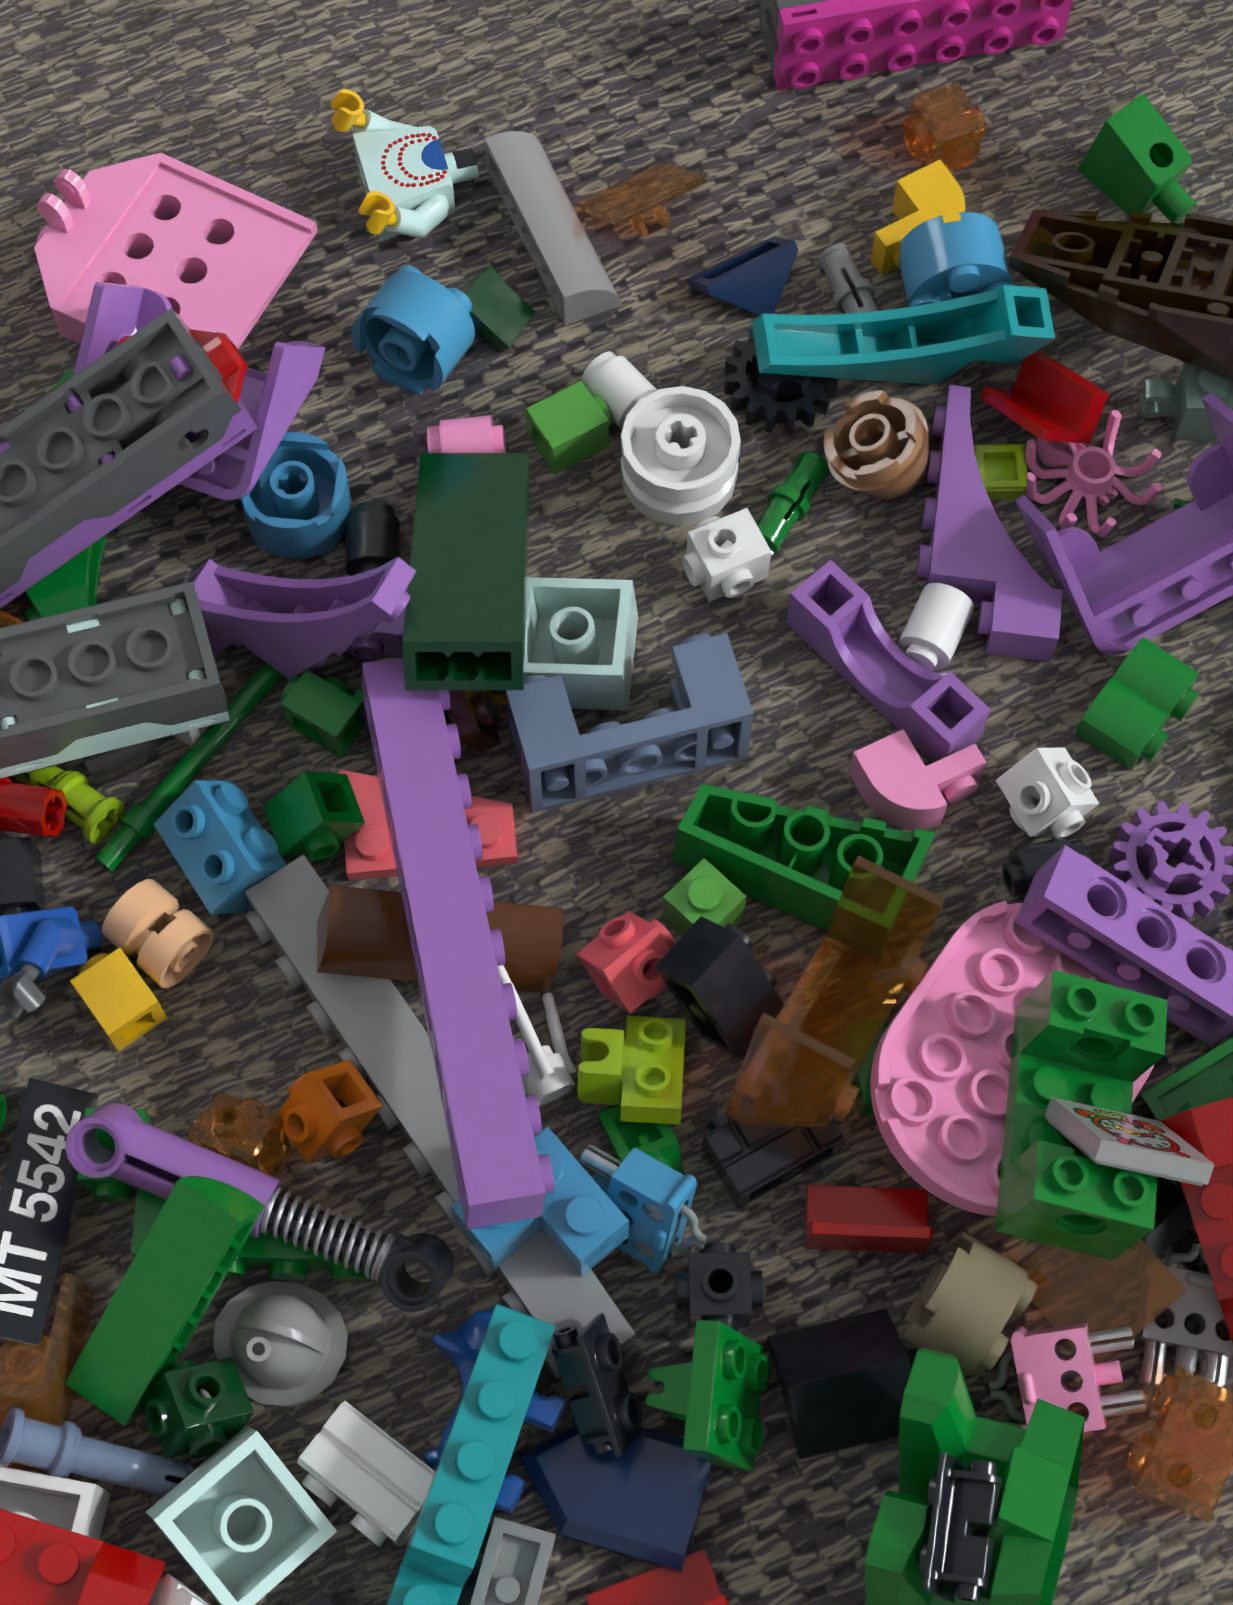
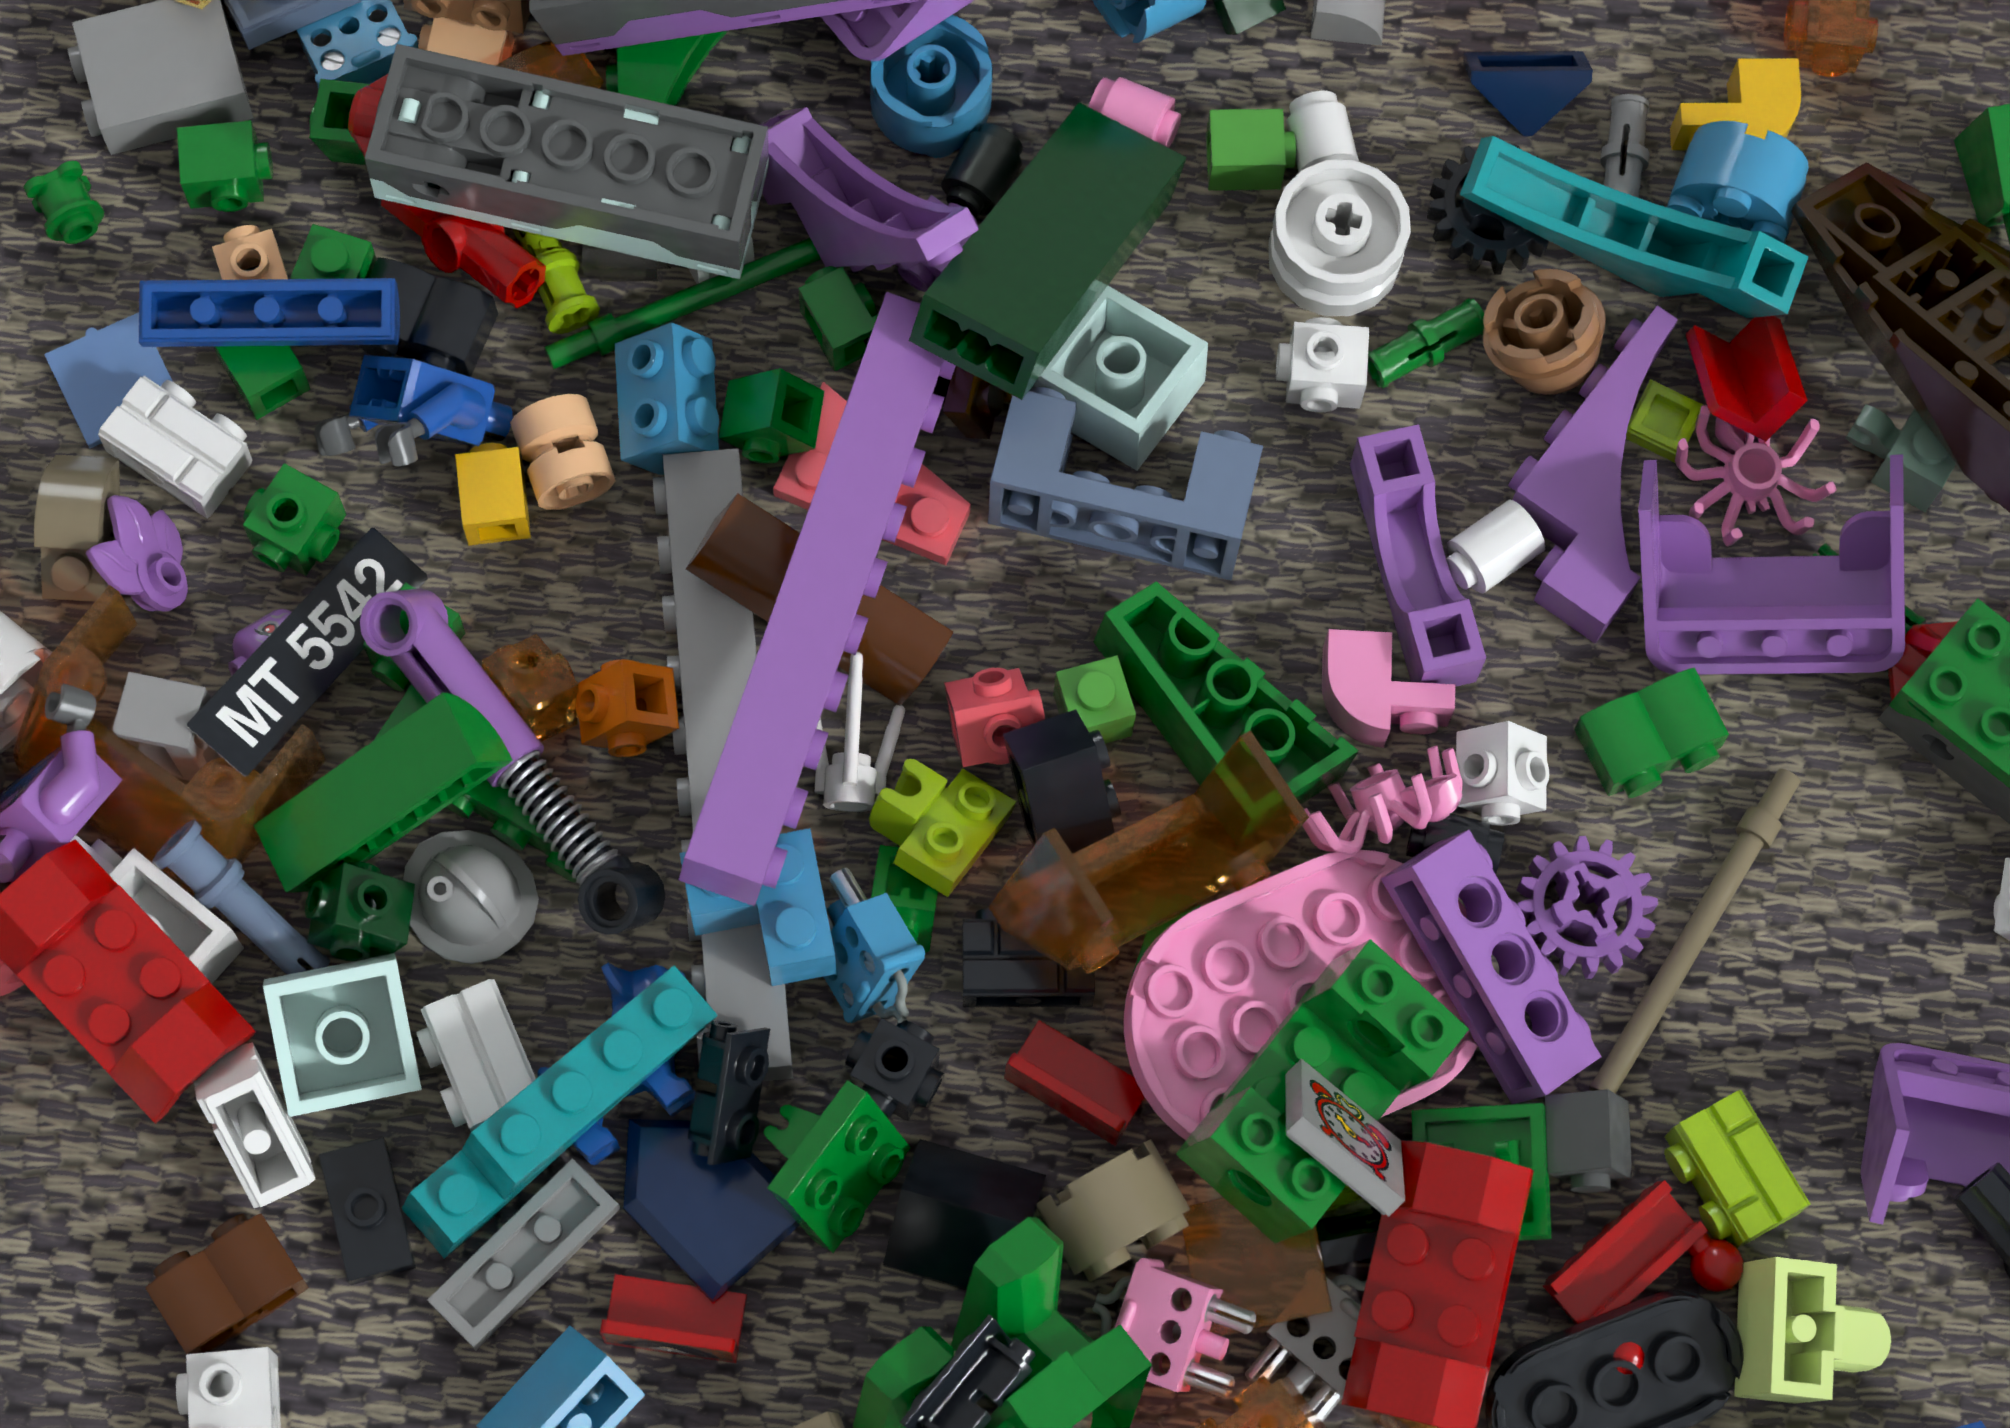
camera: 25 degrees right, 5 degrees up
(980, 861) = (1386, 803): none -> bright pink animal

